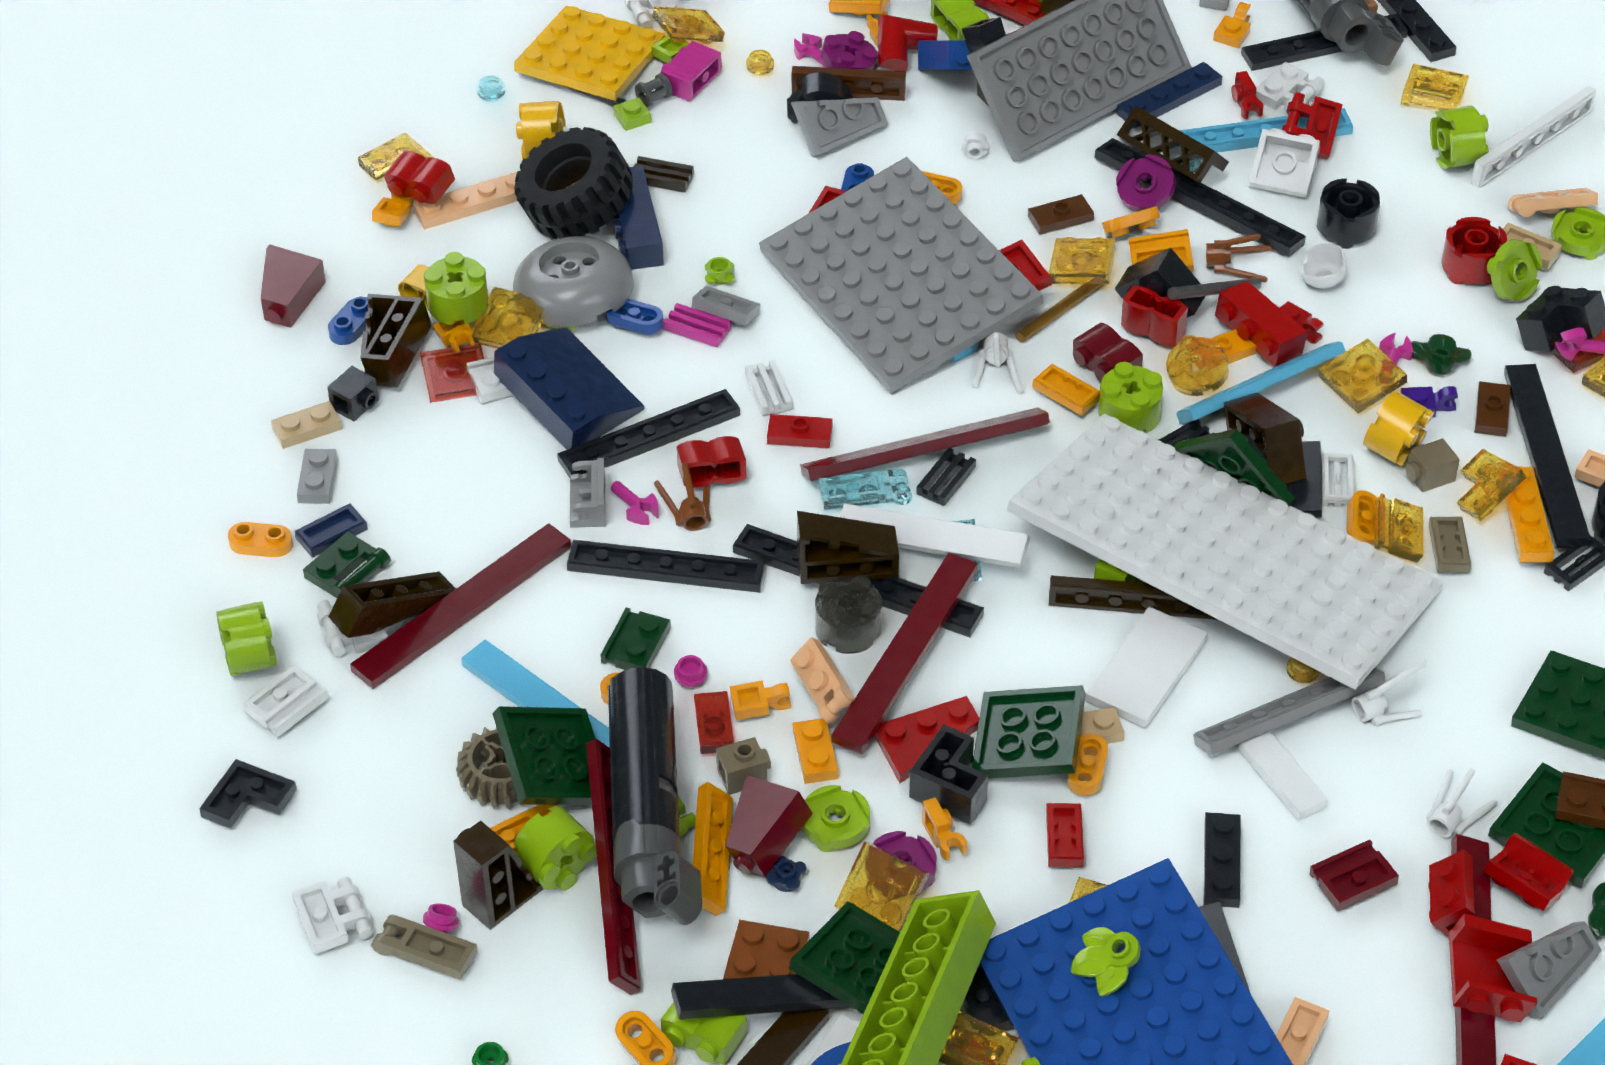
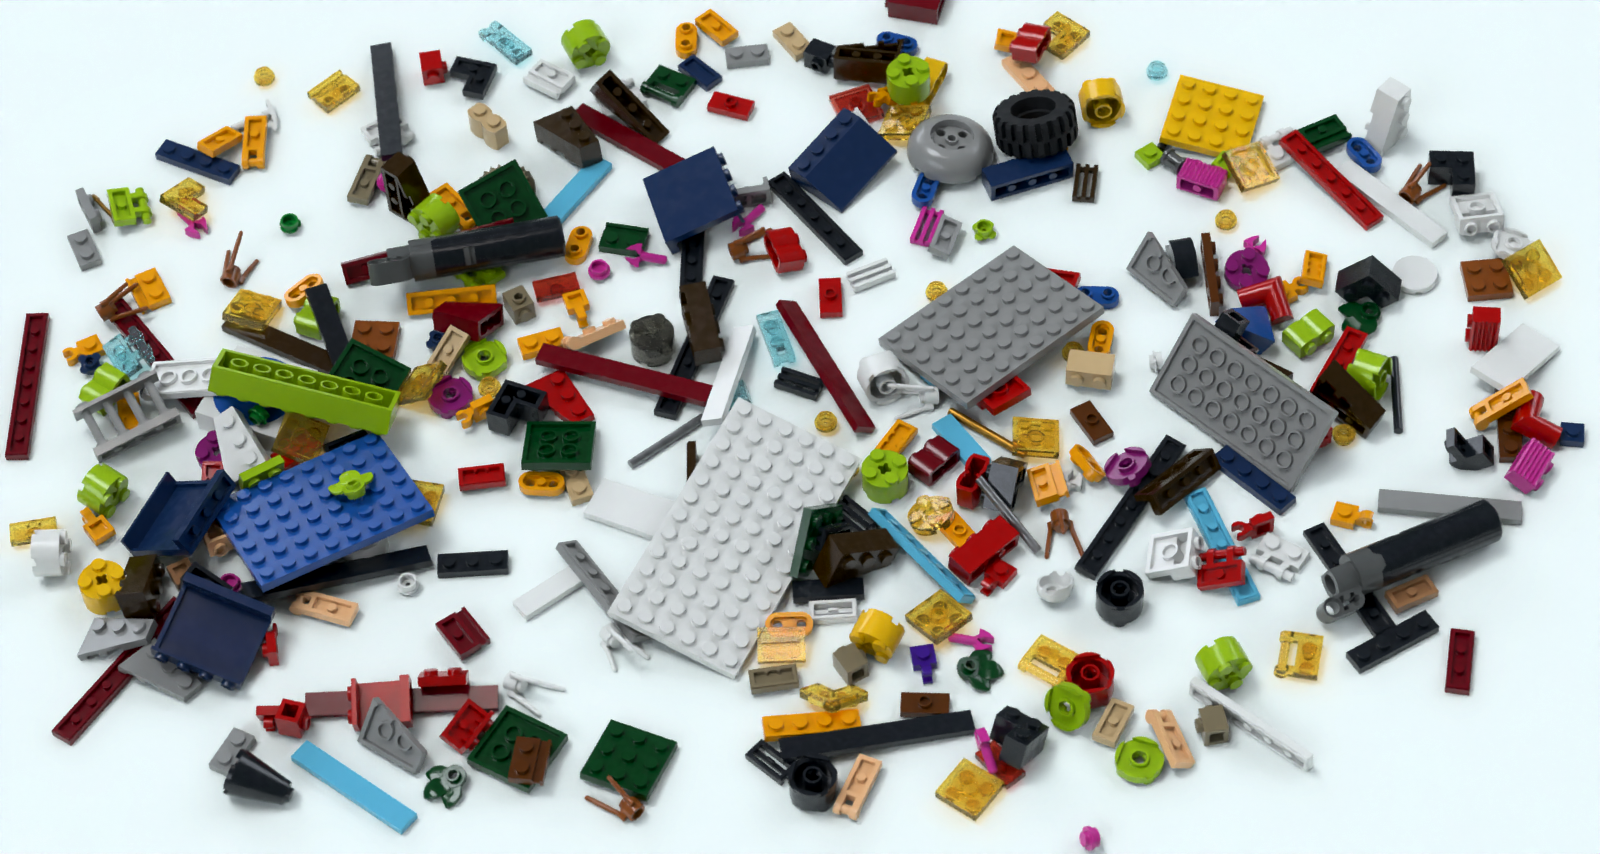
camera: 85 degrees right, 5 degrees up
(185, 750) = (505, 42): none -> clear light blue plate
(211, 844) = (432, 67): none -> red brick
(213, 983) = (333, 91): none -> clear yellow plate
(252, 499) = (716, 27): none -> light orange plate
(270, 903) = (386, 100): none -> black tile
(366, 777) = (488, 126): none -> tan brick
(409, 501) = (730, 106): none -> red plate
(428, 672) = (569, 135): none -> dark brown wedge
(601, 540) = (693, 196): none -> dark blue panel
(678, 616) = (644, 256): none -> dark pink bar
(815, 325) = (935, 290): none -> clear yellow plate
(817, 853) = (450, 347): none -> tan plate
(891, 809) = (489, 382): none -> clear yellow plate
(968, 380) = (877, 372): none -> white brick
(987, 195) = (1090, 369): none -> tan brick
(1020, 454) = (828, 418): none -> clear yellow plate
(1024, 624) = (664, 442): none -> flat silver bar
(1059, 336) = (955, 433): none -> medium azure tile
(1257, 931) = (407, 579): none -> white plate
(1428, 282) = (1050, 654): none -> clear yellow plate
(1534, 165) = (1212, 725): none -> dark tan brick

